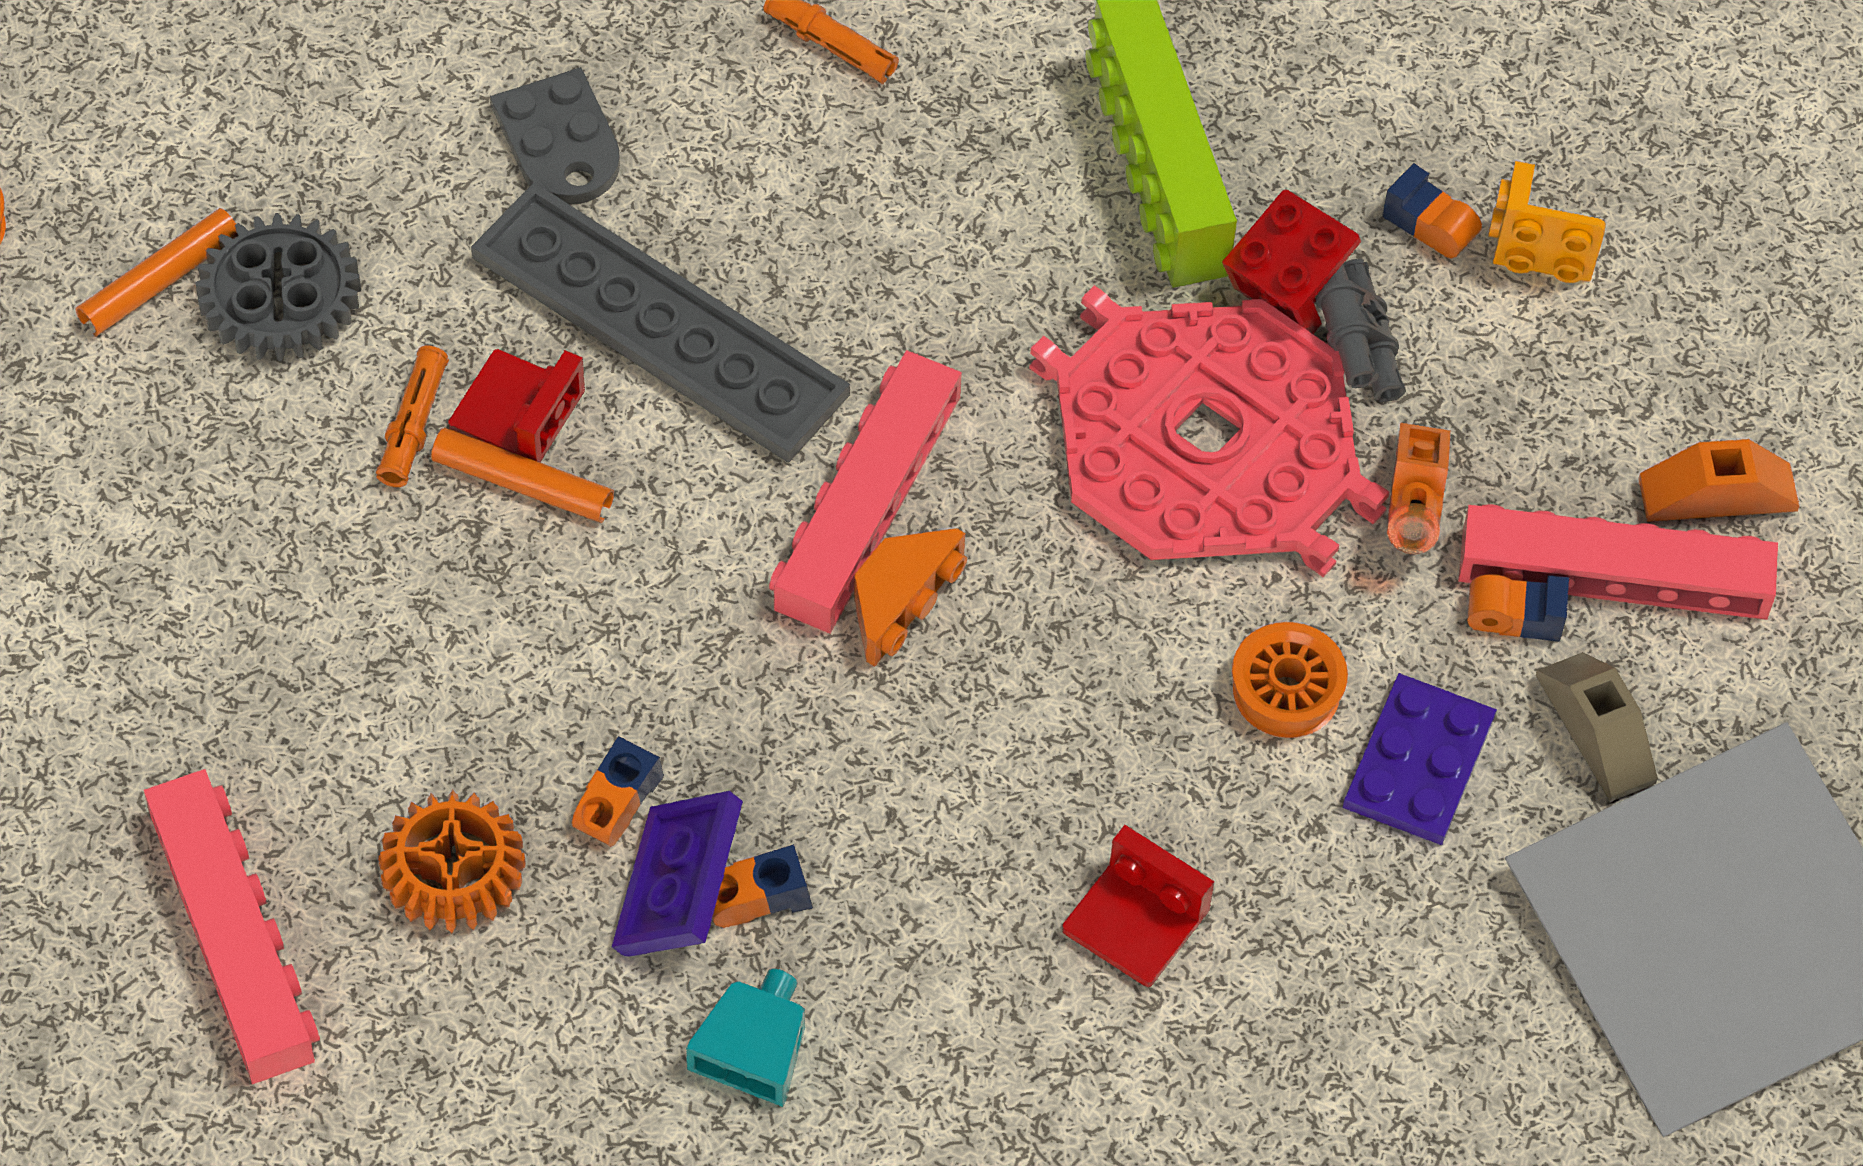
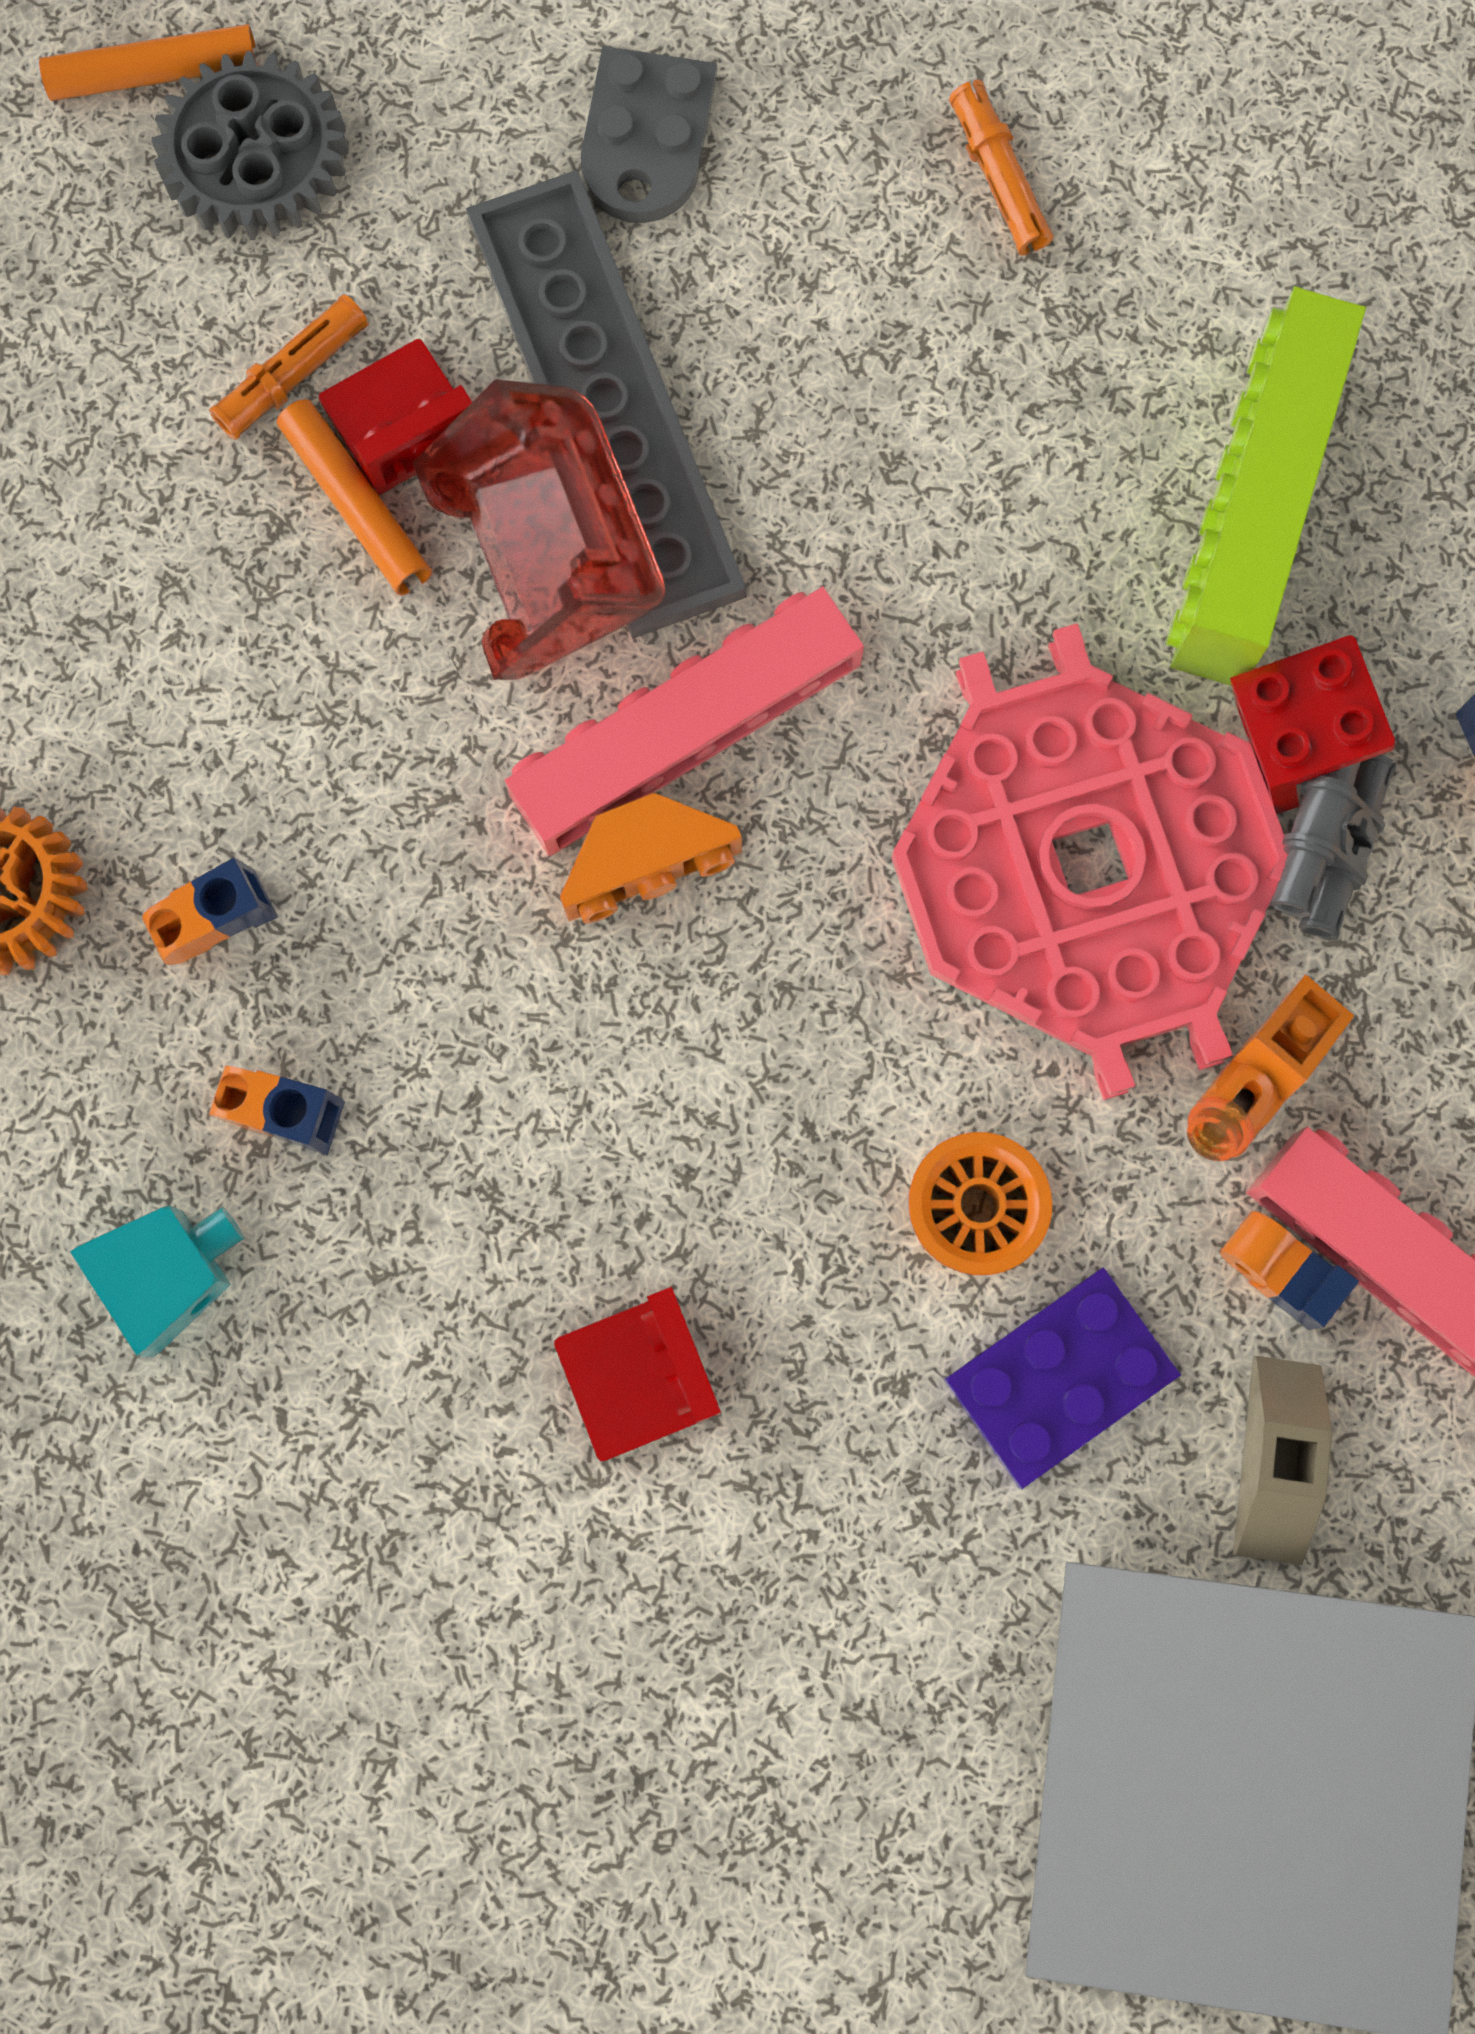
camera: 35 degrees right, 20 degrees up
(677, 874) = (196, 1048): dark purple plate -> none
(679, 415) = (549, 519): none -> clear red windscreen

